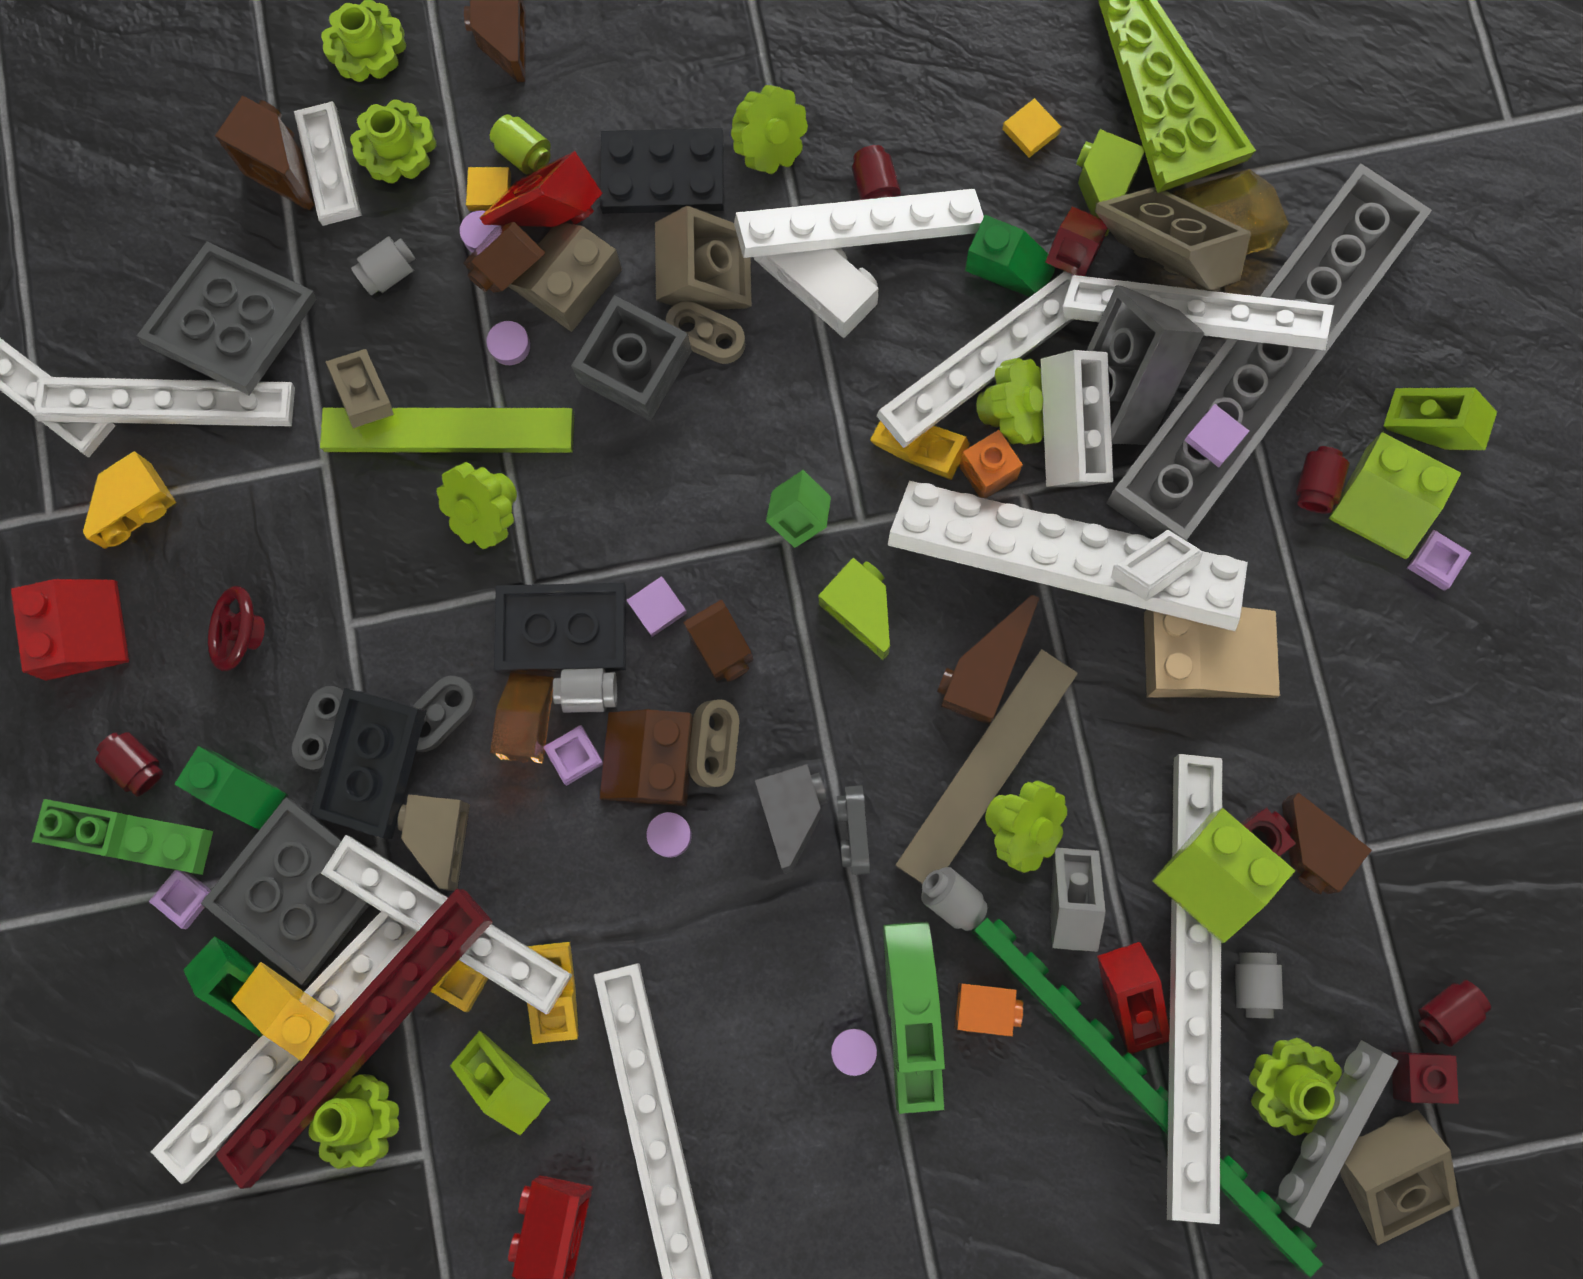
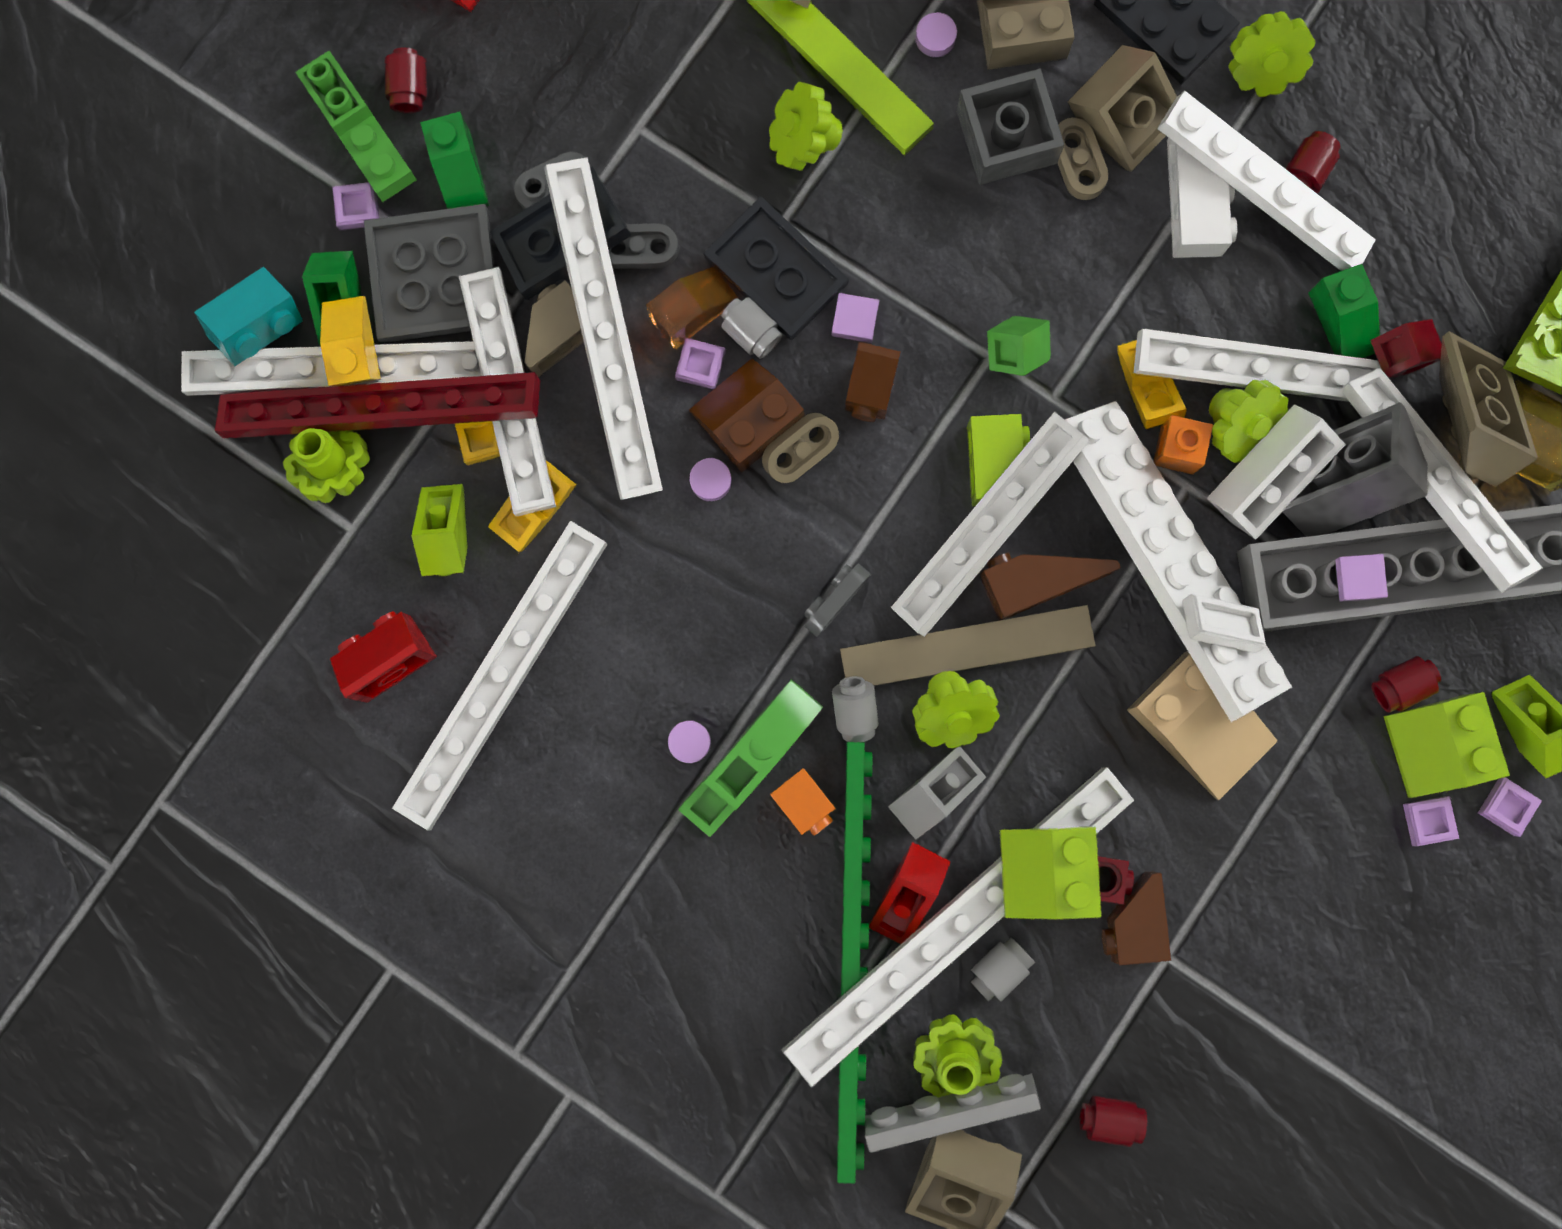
camera: 45 degrees right, 5 degrees up
(180, 1069) = (249, 316): none -> teal brick
(238, 630) = (556, 57): dark red piece -> none
(475, 802) = (603, 327): none -> white plate
(792, 810) = (804, 543): flat silver slope -> none
(913, 662) = (990, 524): none -> white plate
(1031, 128) = (1463, 235): yellow tile -> none
(1107, 168) = (1488, 316): lime slope -> none
(1425, 1078) = (1049, 1140): dark red brick -> none
(1481, 495) = (1509, 806): none -> lavender tile

